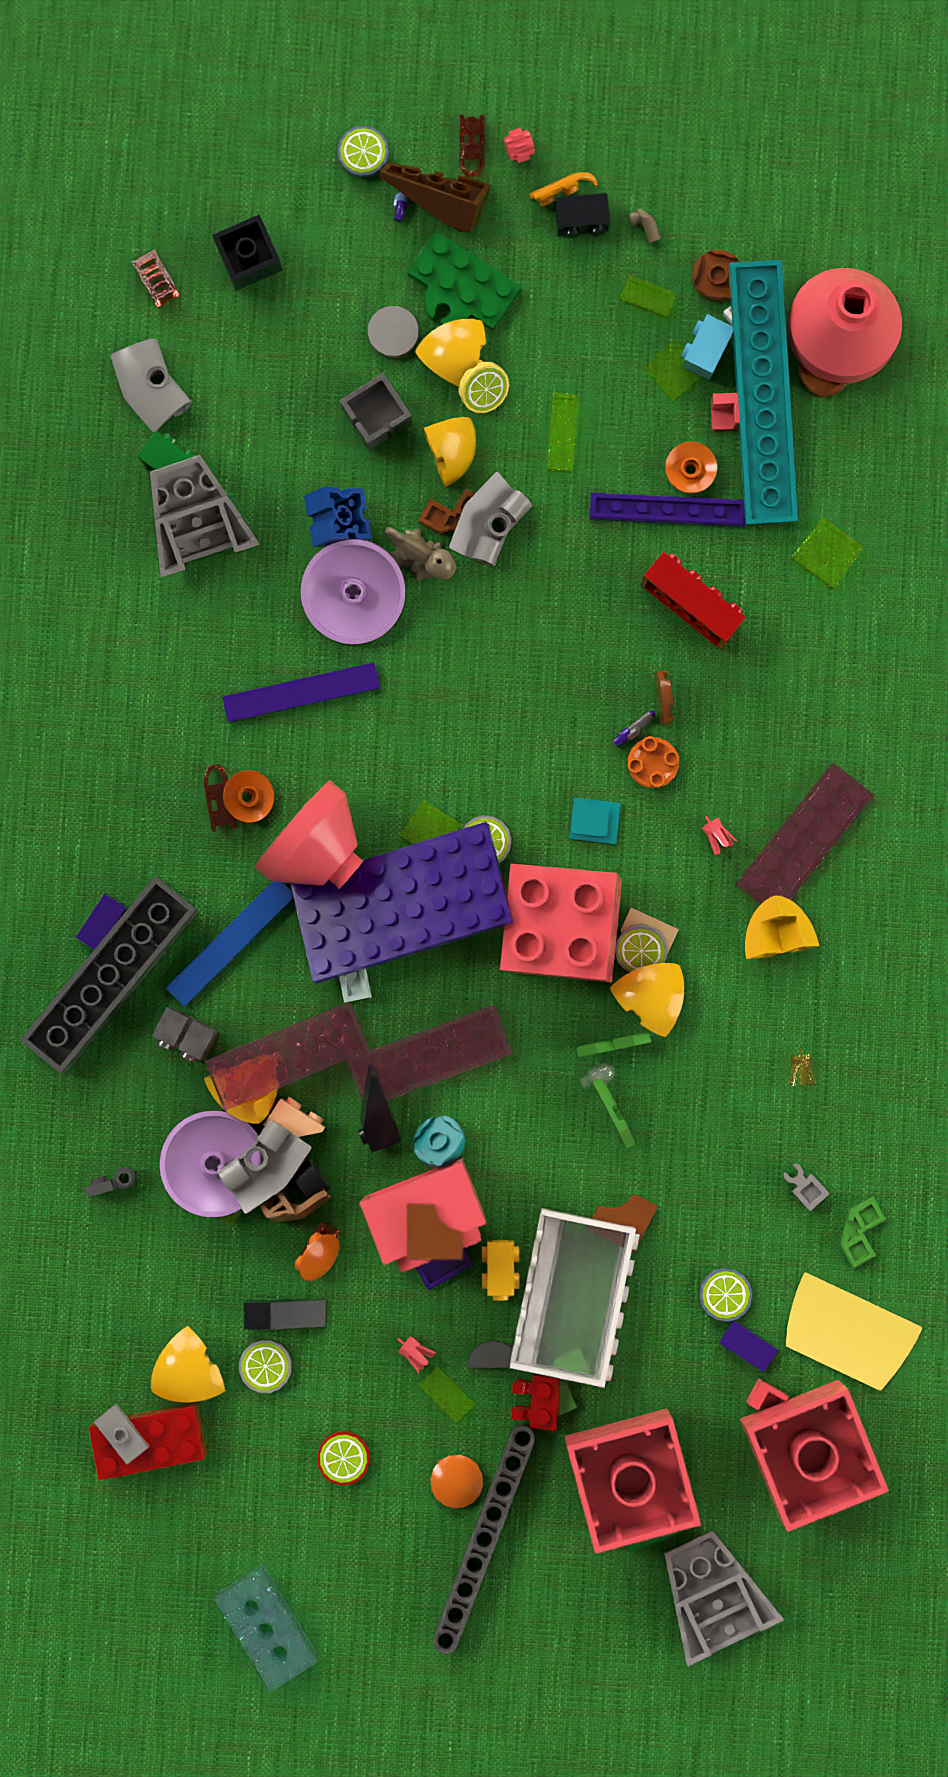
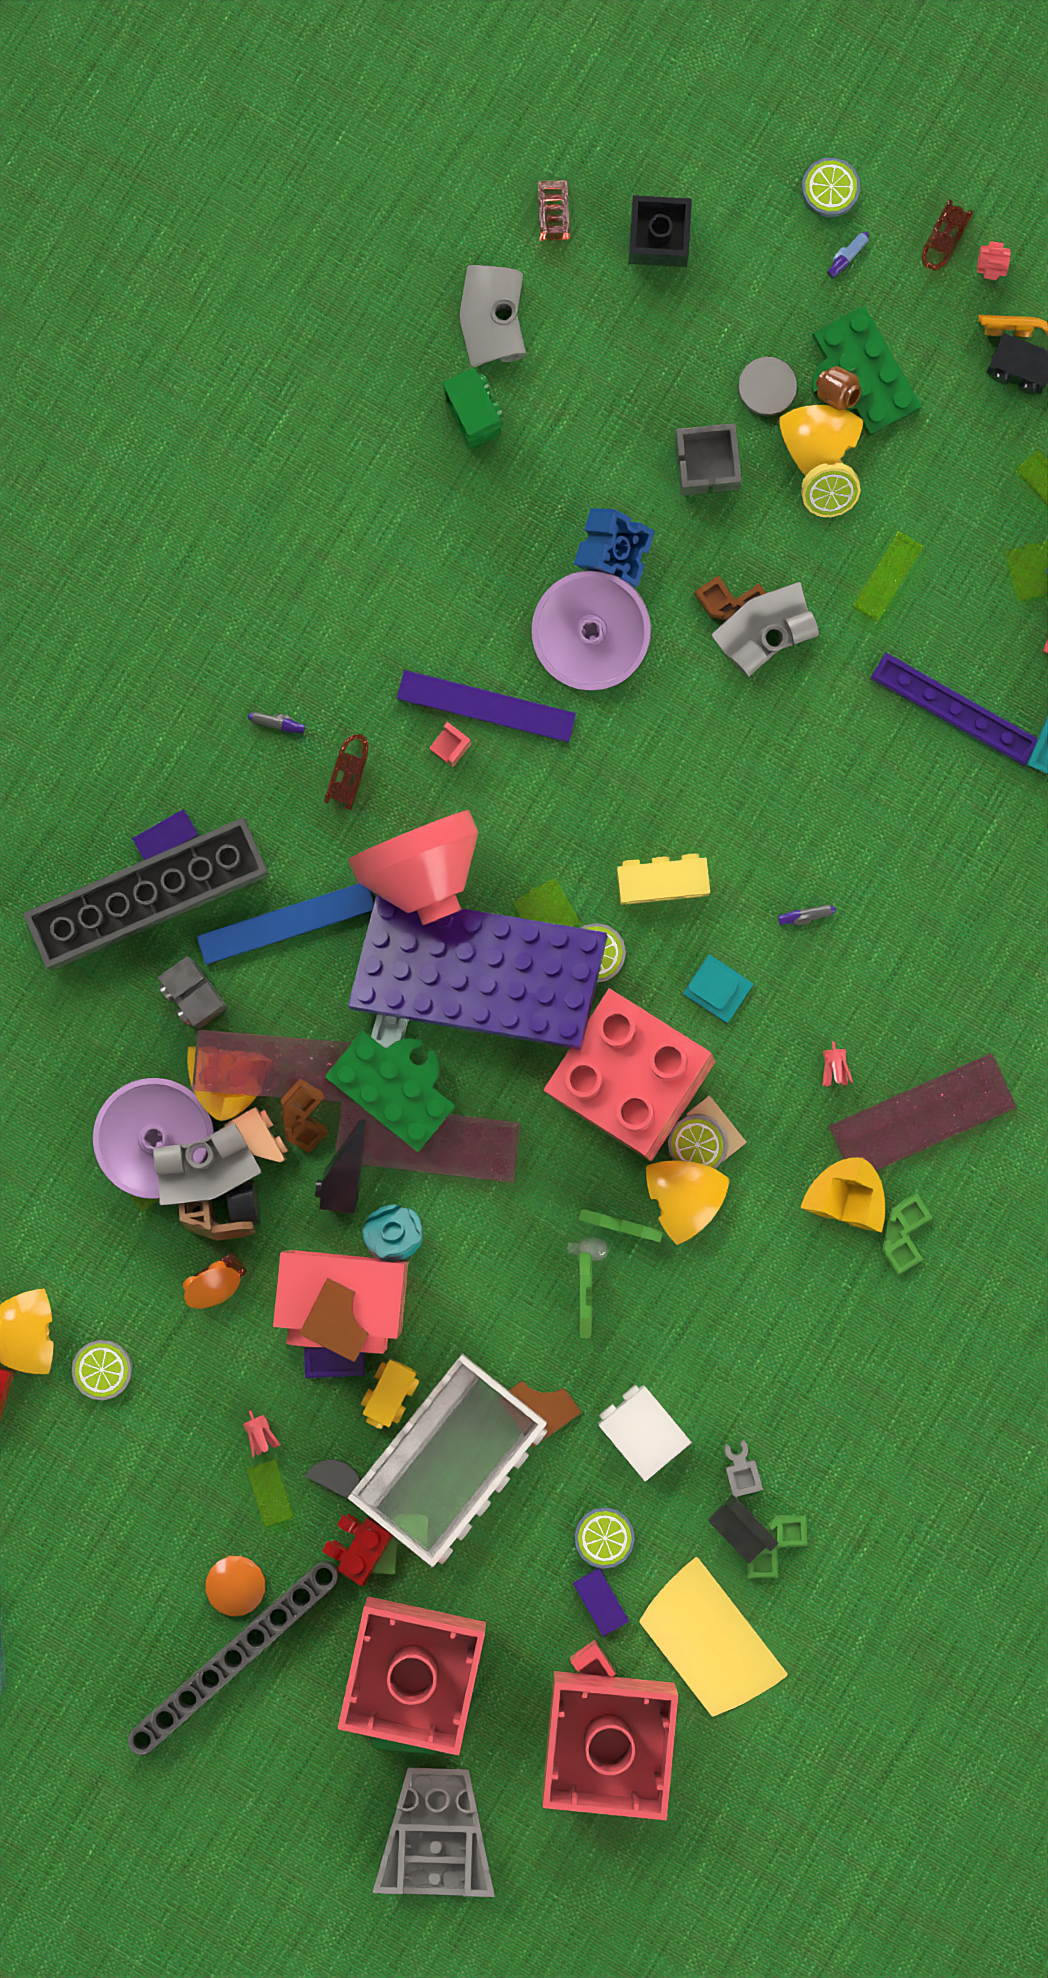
camera: 25 degrees right, 0 degrees up
(102, 1185) = (31, 1102): dark grey plate -> none
(144, 787) = (278, 721): none -> piece
(193, 515) = (468, 472): light grey wedge -> none
(260, 796) = (392, 784): orange dish -> none
(284, 1313) = (147, 1326): black slope -> none
(288, 736) = (450, 745): none -> coral panel
(313, 1083) = (296, 1108): none -> dark orange tile
(343, 1457) = (133, 1503): lime tile -> none
(381, 1027) = (393, 1087): none -> green plate
(423, 558) = (680, 632): dark tan animal -> none
(449, 200) = (892, 280): reddish brown wedge -> none
(449, 304) = (838, 388): none -> dark orange head
(452, 446) = (767, 534): yellow brick -> none
(508, 757) = (663, 879): none -> light yellow brick
(653, 762) = (808, 959): orange dish -> none
(664, 697) = (853, 899): dark orange tile -> none
(692, 599) = (932, 814): red brick -> none
(693, 455) = (1011, 668): orange dish -> none
(713, 1196) = (643, 1431): none -> white brick
(802, 1065) = (800, 1344): clear yellow piece -> none
(829, 1233) = (742, 1529): none -> pearl dark grey panel
(830, 928) = (901, 1221): none -> bright green tile

